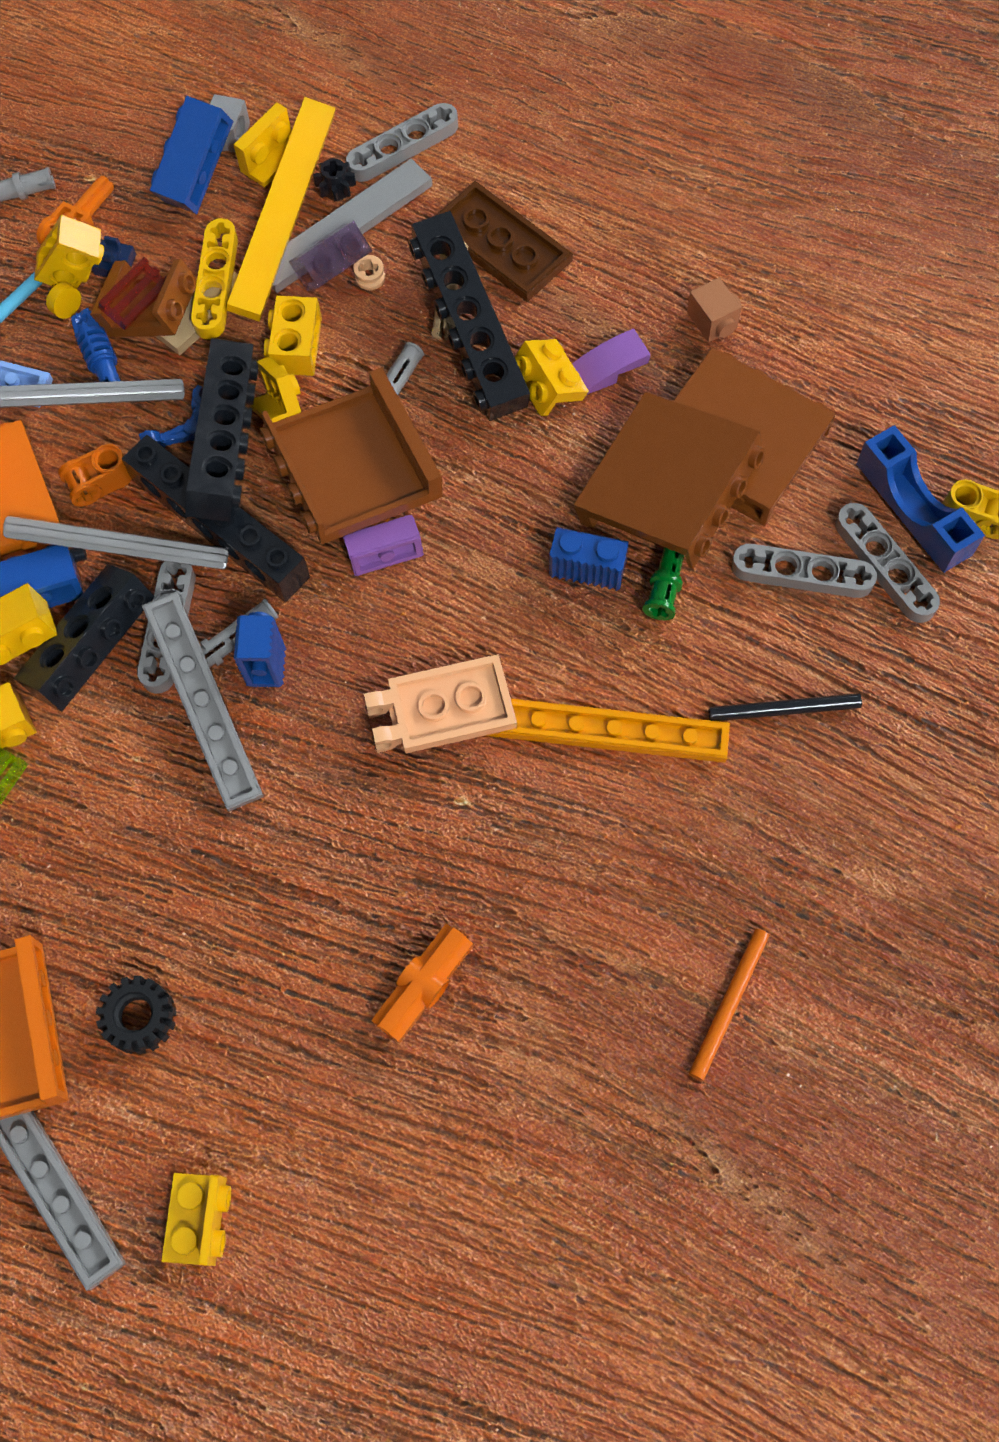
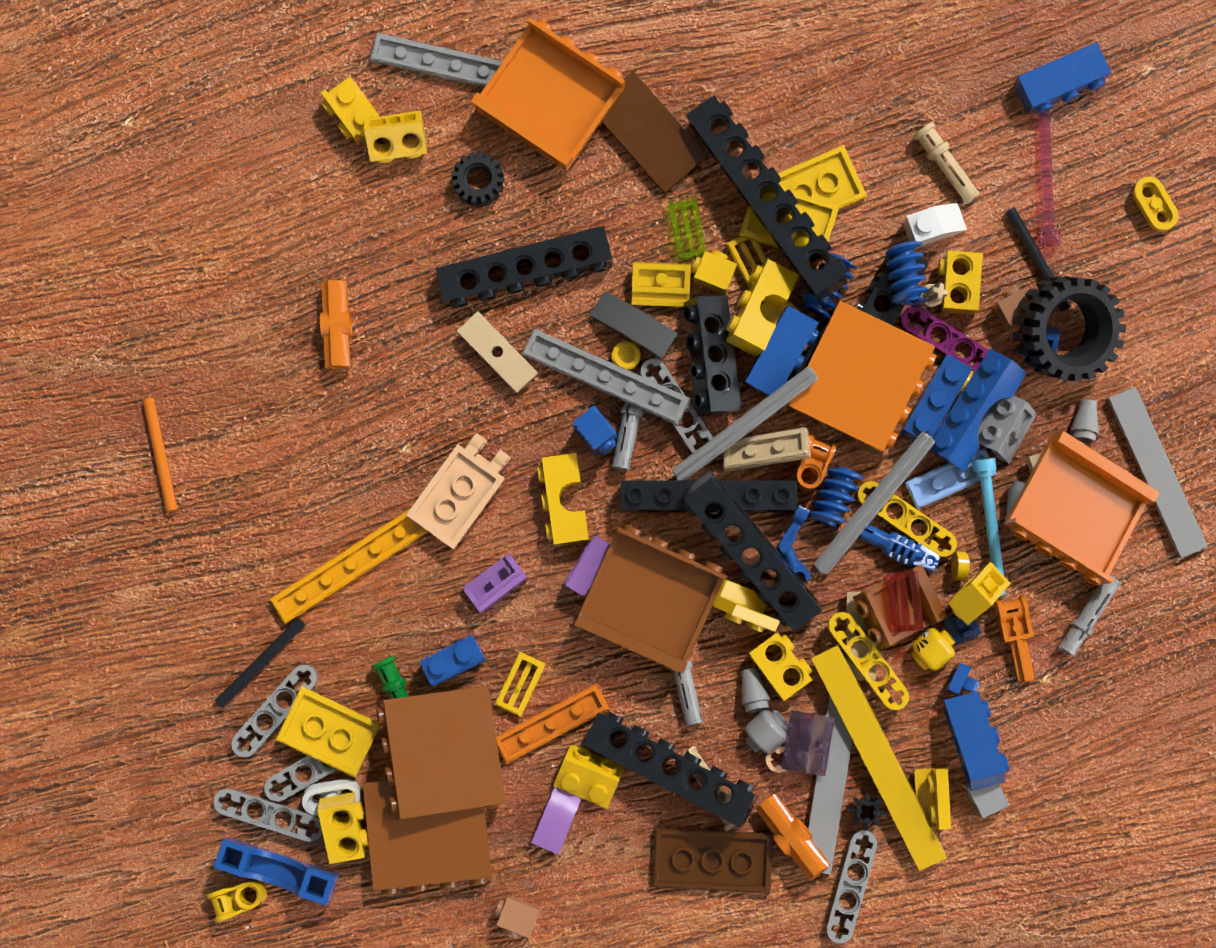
camera: 145 degrees right, 15 degrees up
(65, 749) = (660, 284): none -> yellow plate
(67, 373) = (910, 514): none -> yellow beam
(86, 842) = (452, 275): none -> black brick
(104, 429) = (835, 496): none -> blue piece
(117, 509) = (767, 449): none -> tan tile
(128, 728) = (634, 325): none -> dark grey slope
(155, 247) = (933, 649): none -> yellow head
(156, 217) = (960, 679): none -> blue tile
(166, 712) = (626, 355): none -> yellow tile
(174, 1137) = (393, 129): none -> yellow brick
(284, 793) = (485, 340): none -> tan tile
(337, 647) = (558, 474): none -> yellow arch
(338, 333) = (753, 691): none -> light grey cone
(357, 293) = (767, 731): none -> light grey head
(413, 192) = (793, 837): none -> orange piece
(486, 598) = (495, 583): none -> medium lavender hinge
(523, 512) = (530, 661): none -> yellow tile
(539, 444) = (551, 723): none -> orange tile
(766, 584) = (328, 731): none -> yellow tile
(807, 655) = (272, 708): none -> light grey beam
(810, 529) = (328, 789): none -> white plate
(821, 488) = (336, 828): none -> yellow brick

